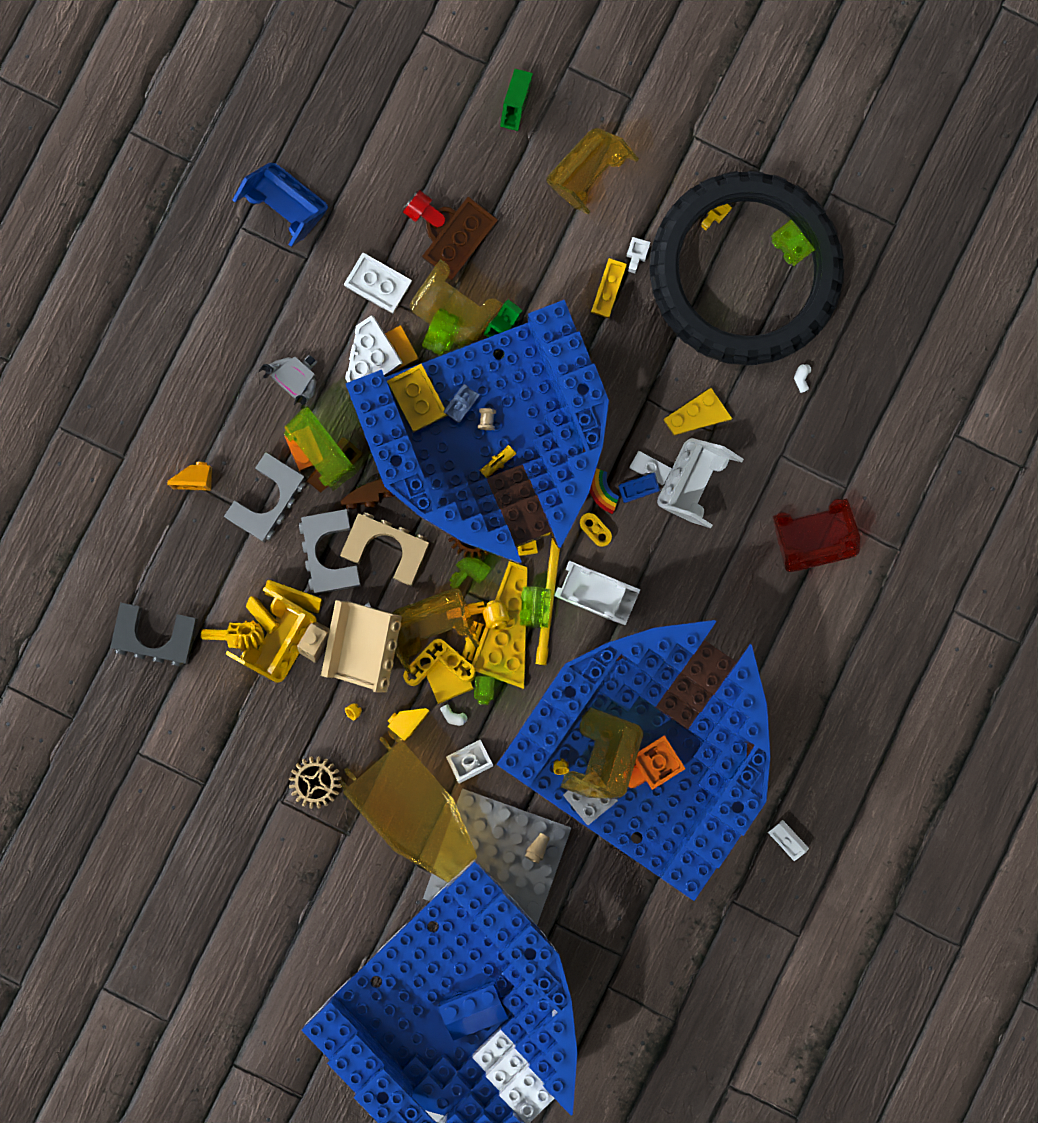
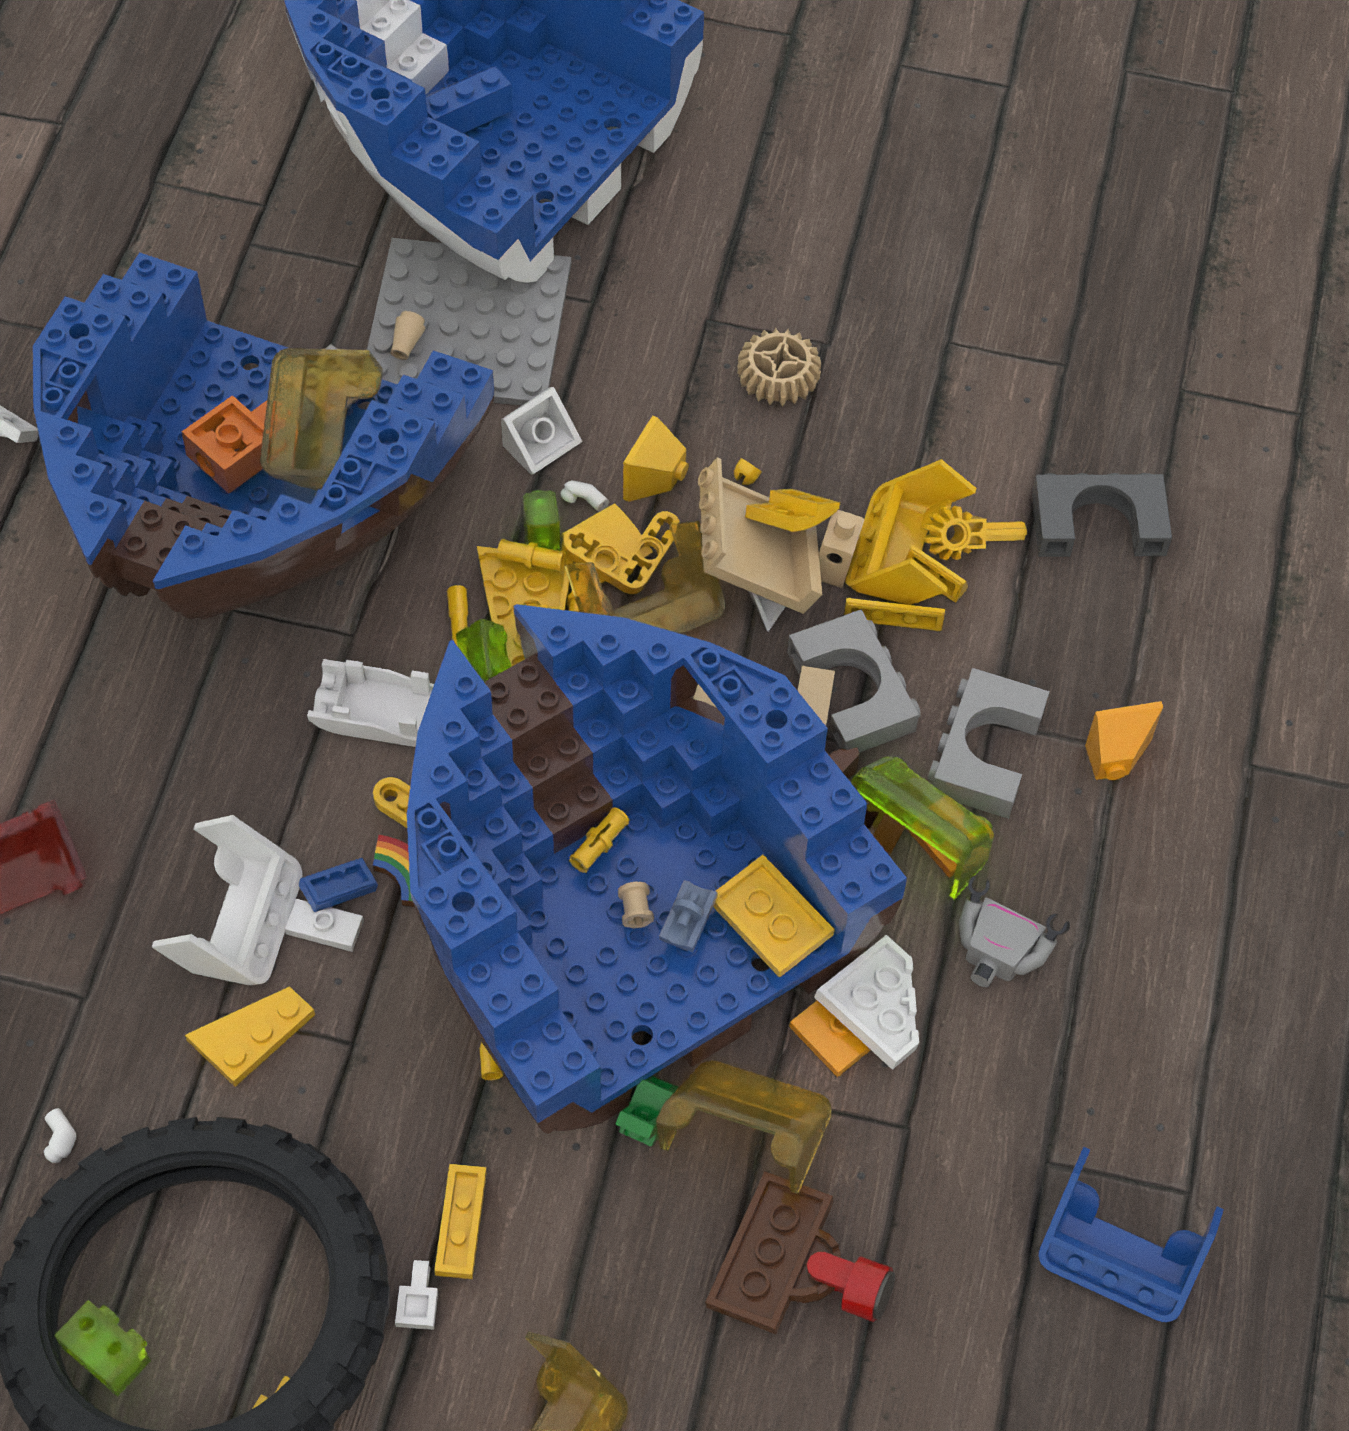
camera: 165 degrees right, 25 degrees down
(337, 659) = (792, 510): none -> yellow slope
(377, 283) = (902, 1138): white plate -> none
(412, 811) = (622, 345): clear yellow windscreen -> none
(441, 331) = (758, 1062): clear neon green brick -> none
(494, 670) = (531, 555): none -> yellow pin

